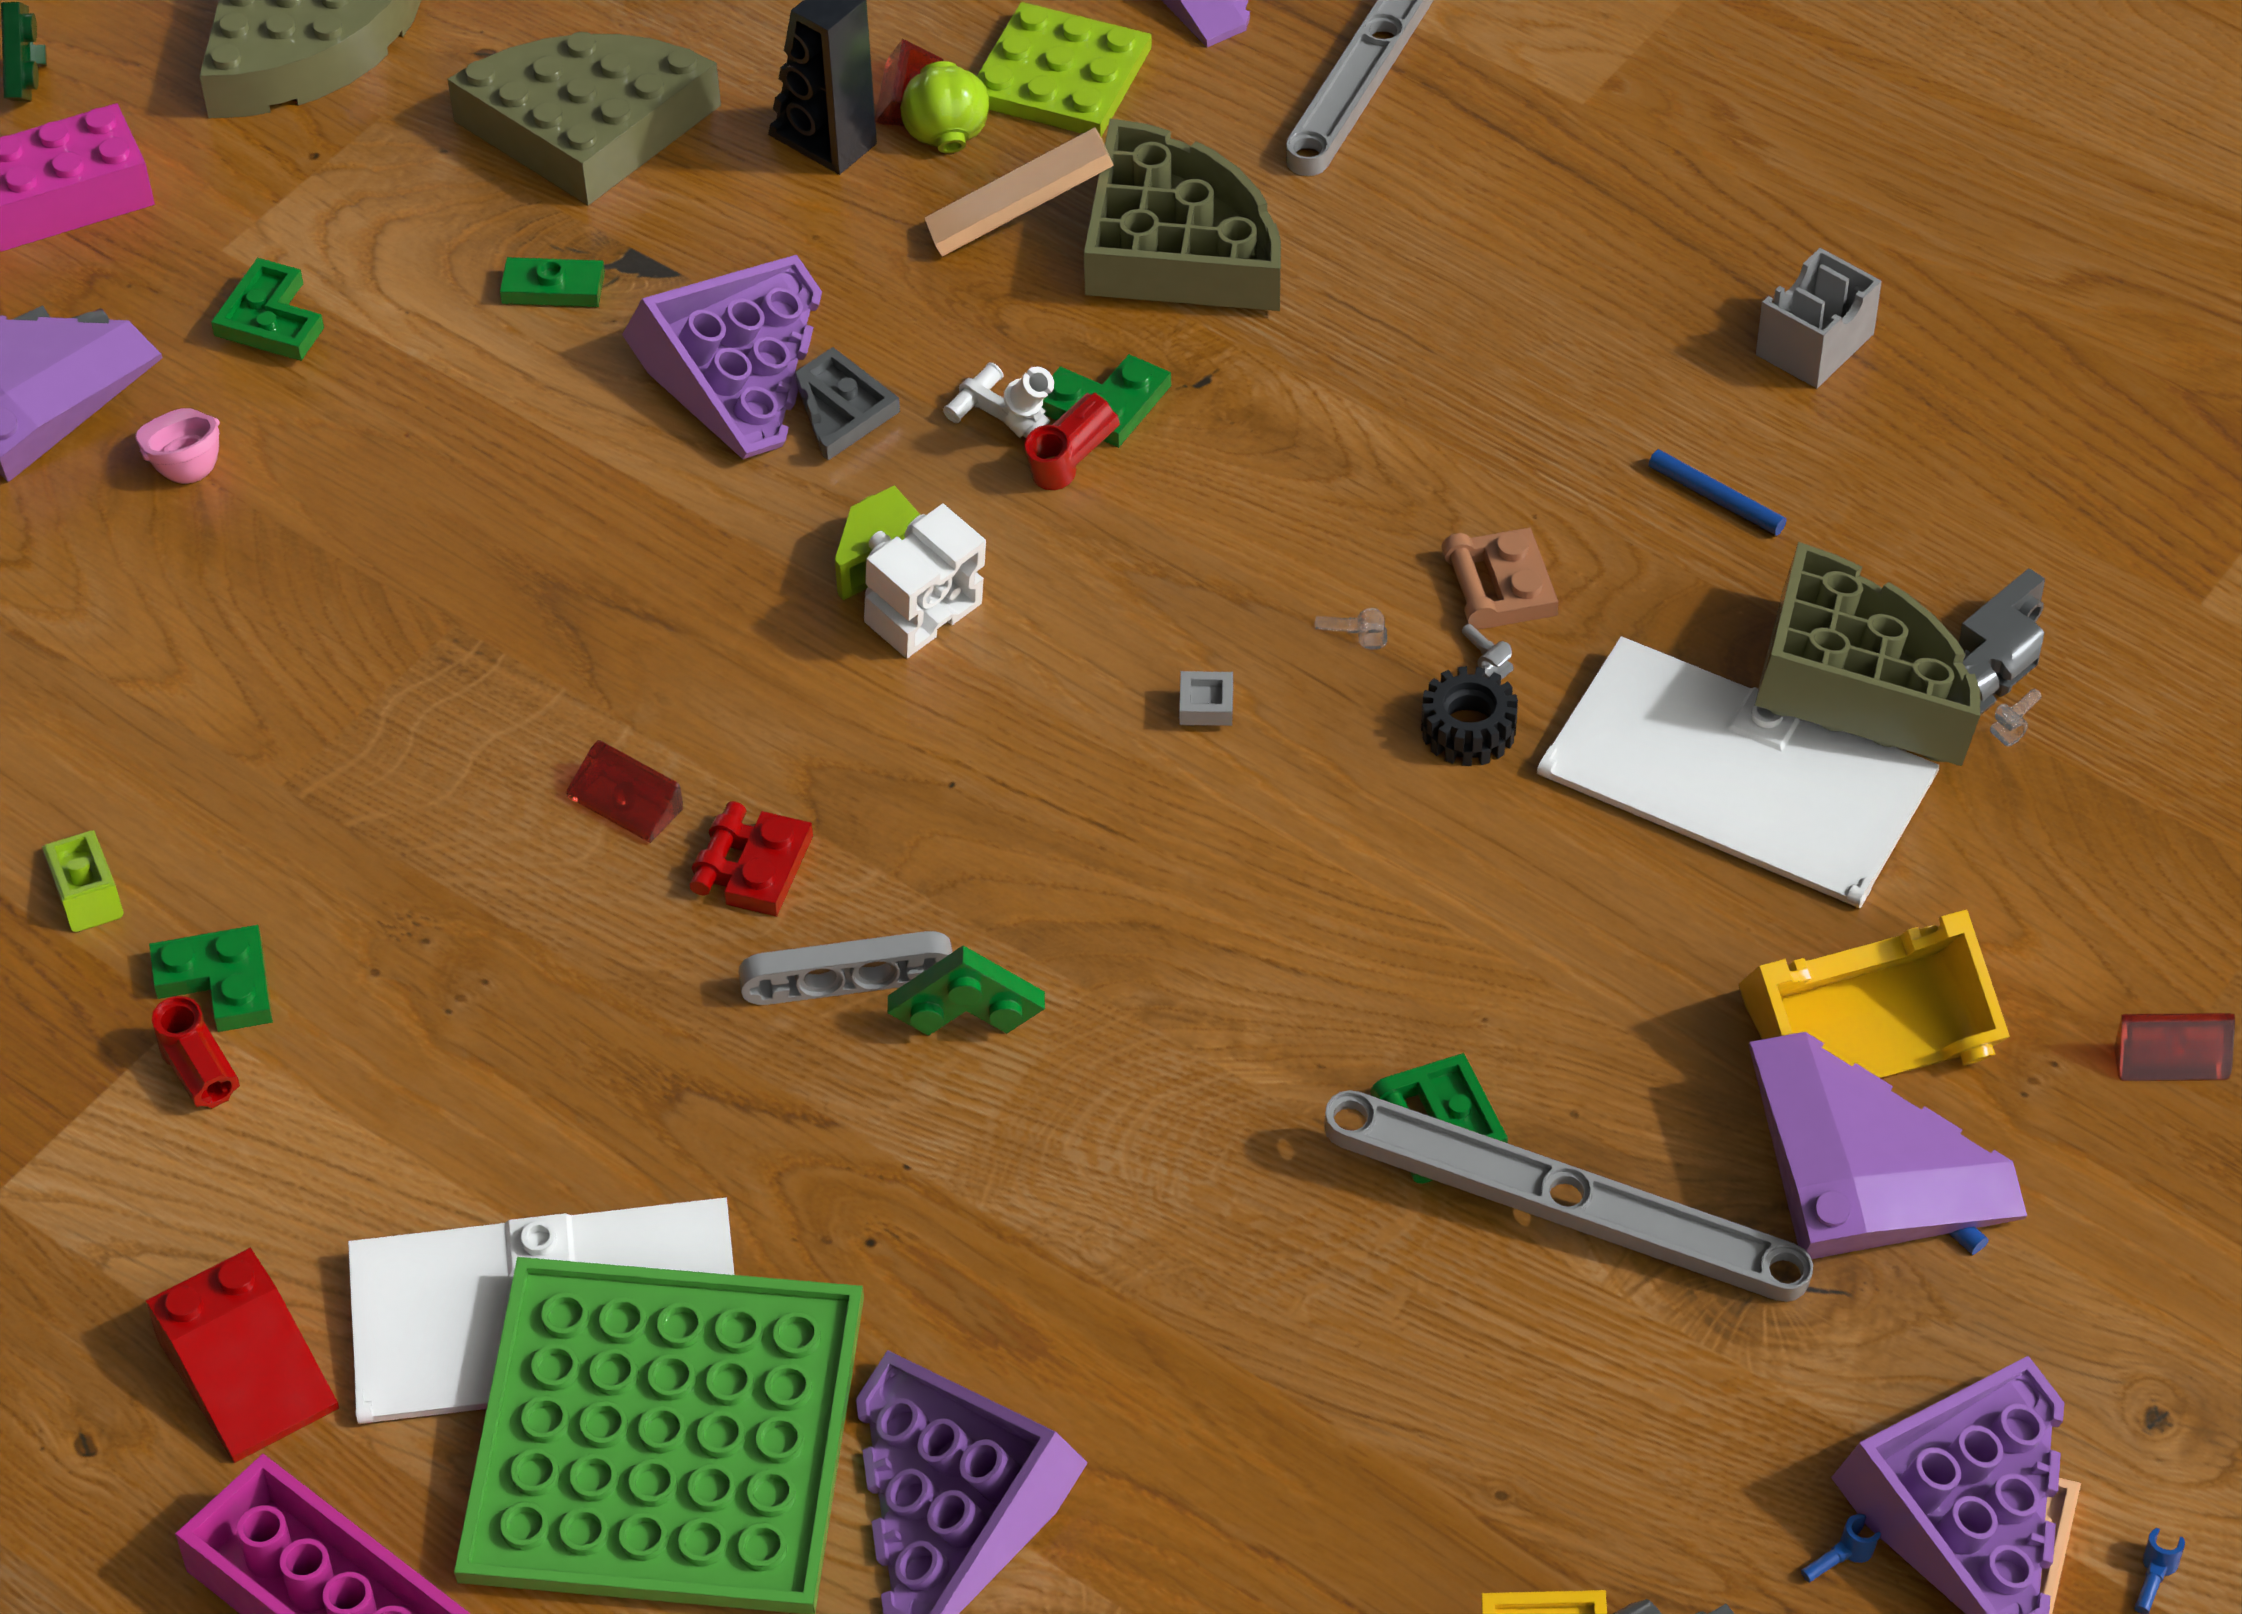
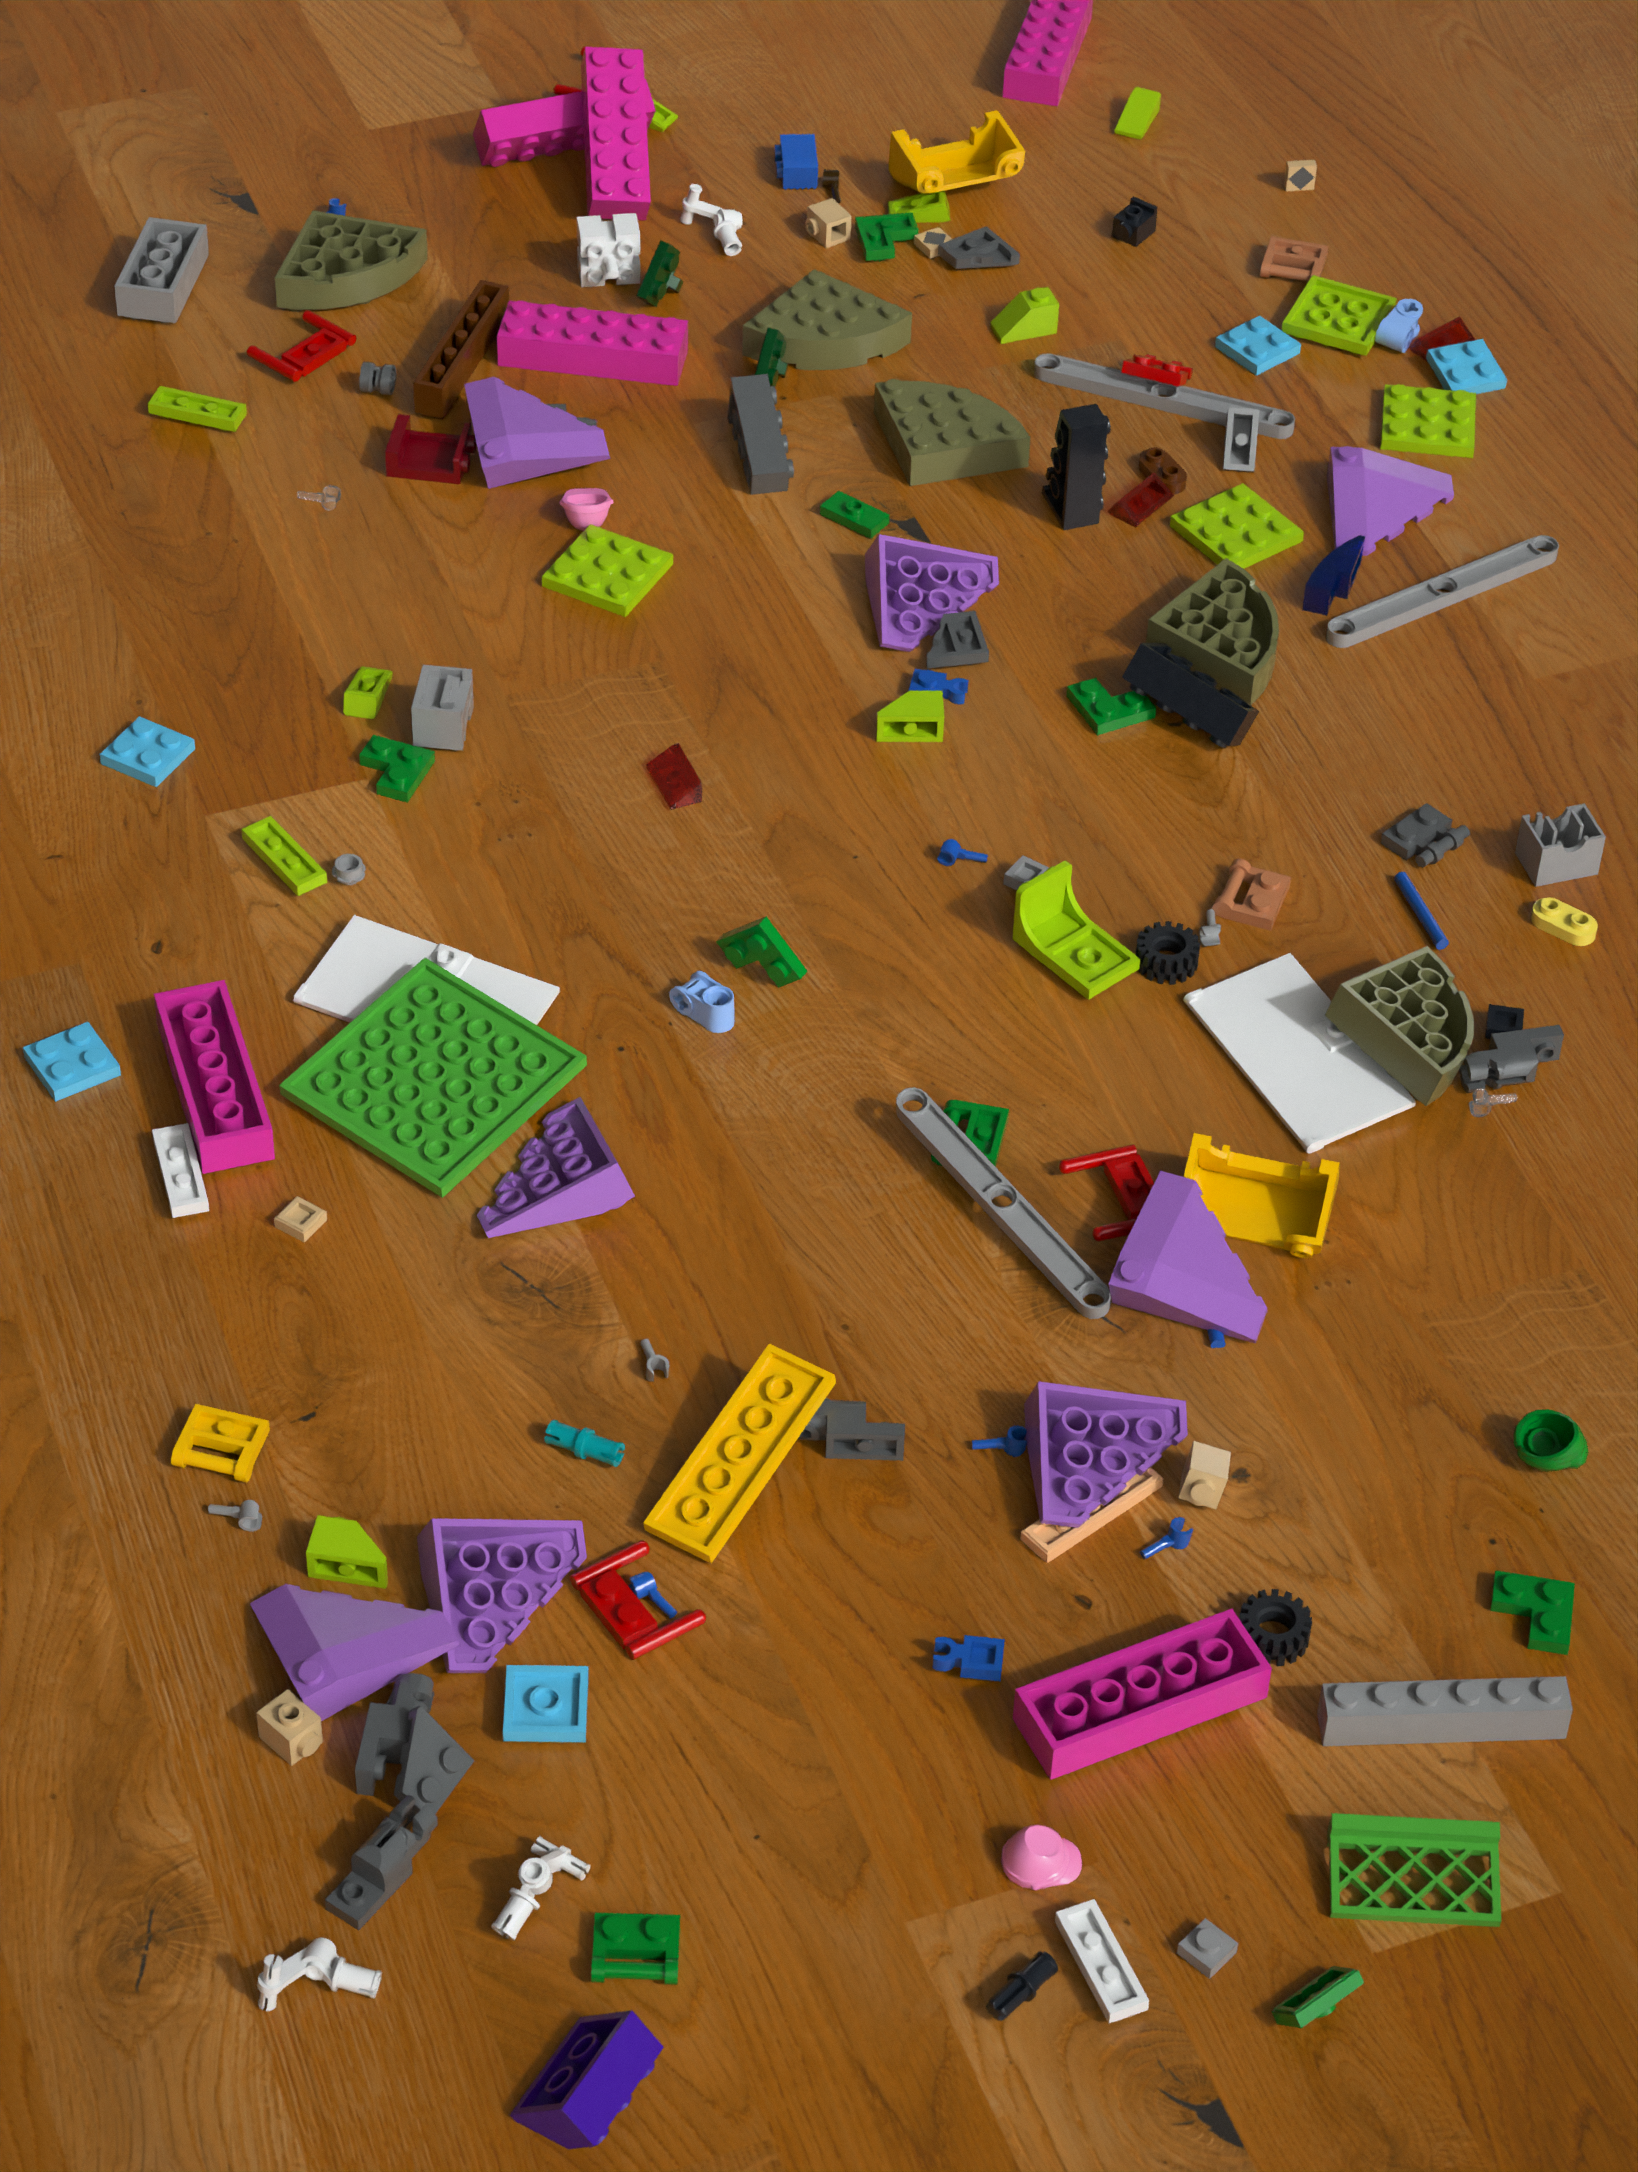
camera: 30 degrees right, 5 degrees down
(169, 1201) = (284, 856): none -> lime plate
(193, 1052) = (351, 792): red piece -> none
(229, 853) = (442, 707): none -> light grey piece
(241, 1354) = (260, 939): red slope -> none
(261, 313) = (685, 462): green plate -> none
(276, 1162) = (348, 869): none -> light grey plate
(278, 117) = (770, 356): none -> dark green hinge
(279, 526) = (607, 570): none -> lime plate
(342, 226) = (759, 434): none -> dark grey wedge
(766, 865) = (721, 846): red plate -> none
(784, 978) = (679, 900): light grey beam -> none
(855, 479) = (928, 680): none -> blue plate
(892, 23) = (1164, 467): none -> reddish brown plate
(923, 579) = (916, 743): white brick -> none
(941, 1109) = (707, 1002): none -> light blue piece
(945, 106) = (1146, 517): lime plant -> none
(1018, 191) = (1145, 576): light nougat tile -> none
(1021, 404) = (1050, 678): white pin -> none
(1069, 441) = (1053, 716): red piece -> none
(1078, 713) = (952, 850): none -> blue hand
(1212, 333) = (1189, 694): none -> black wedge
(1244, 80) = (1334, 576): none -> clear blue slope
(1340, 765) = (1064, 938): none -> lime bracket
(1368, 625) = (1151, 885): clear hand -> none
(1623, 383) = (1417, 835): none -> dark grey plate
(1699, 1079) = (1127, 1178): none -> red plate
(1894, 419) = (1564, 921): none -> light yellow plate
(1948, 596) = (1503, 1019): none -> black plate
(2139, 1450) = (1204, 1475): none -> tan brick
(2175, 1047) = (1421, 1303): clear red slope -> none

